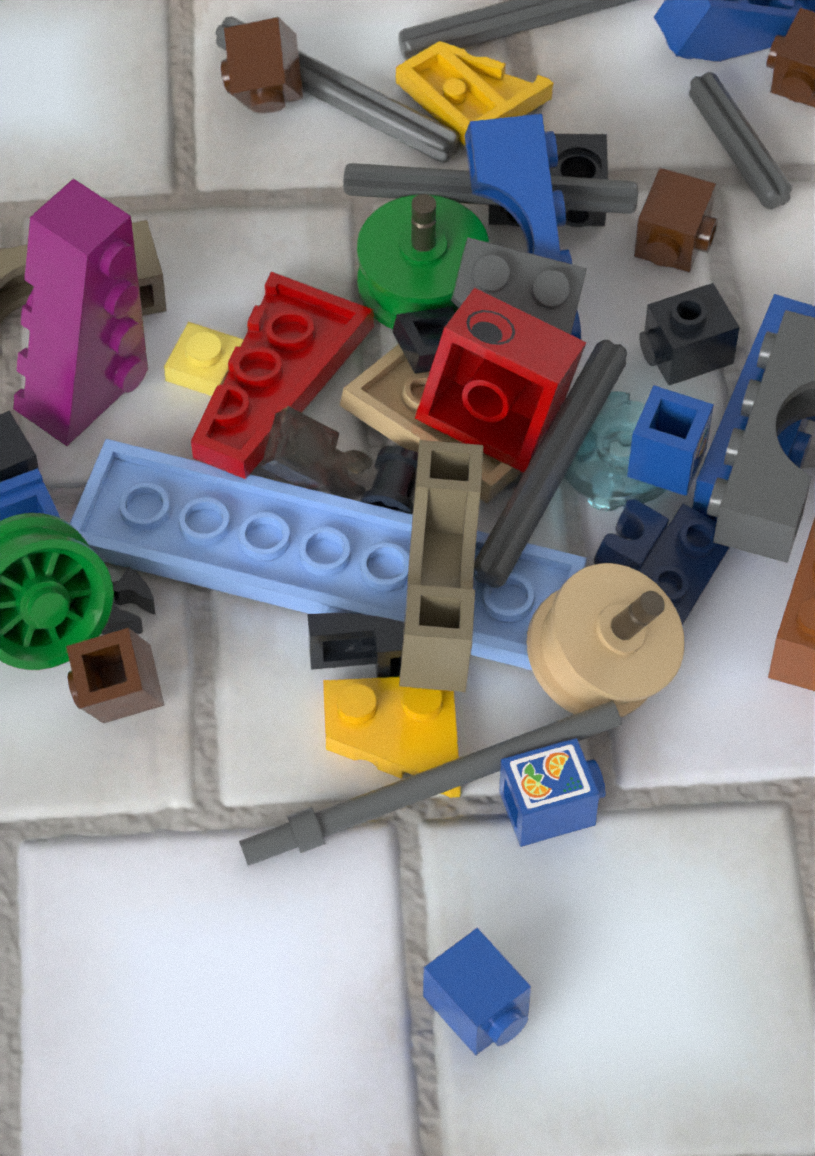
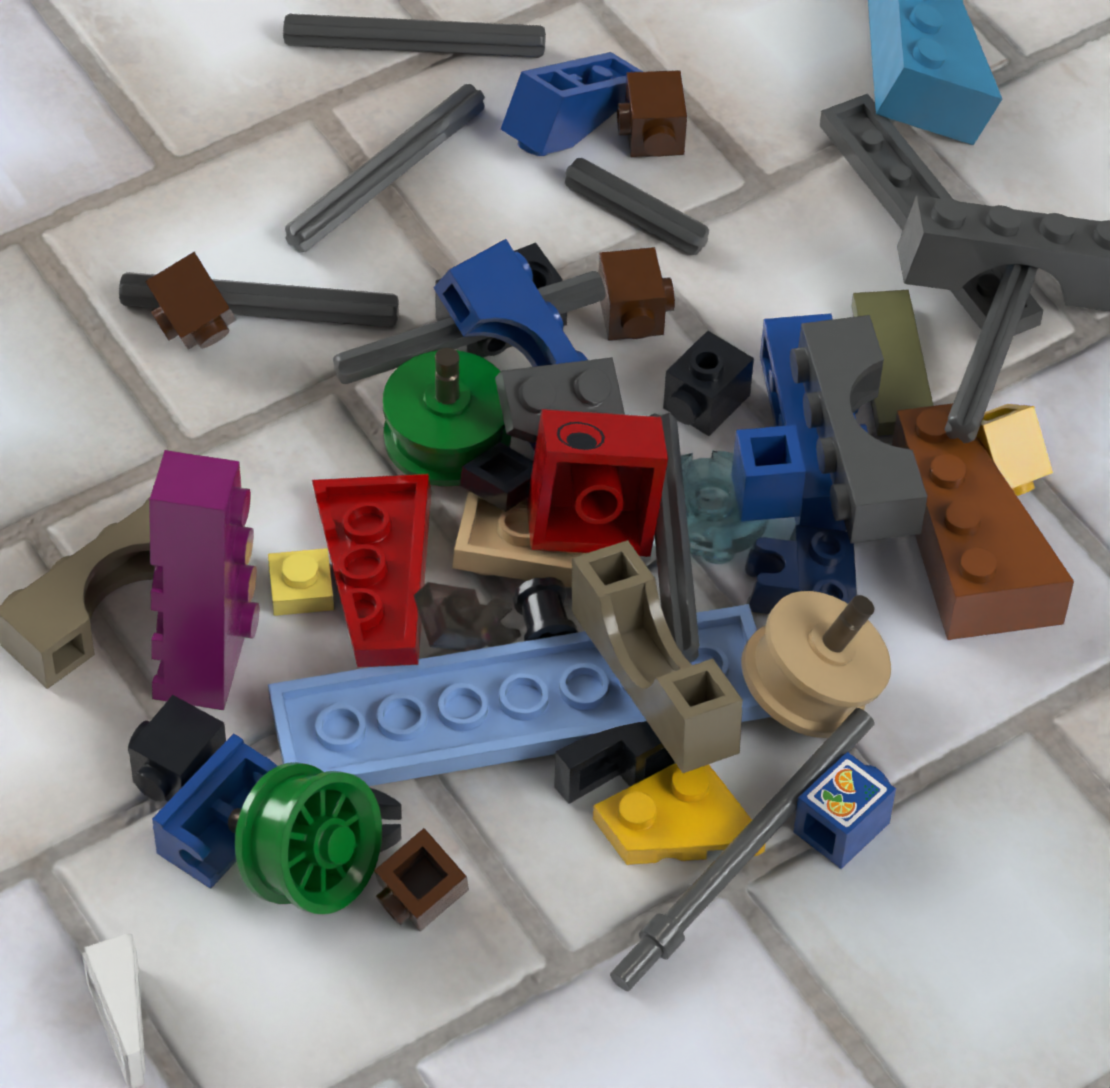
camera: 30 degrees left, 5 degrees down
(467, 87) = (379, 255): yellow wing -> none
(477, 992) = (897, 999): blue brick -> none

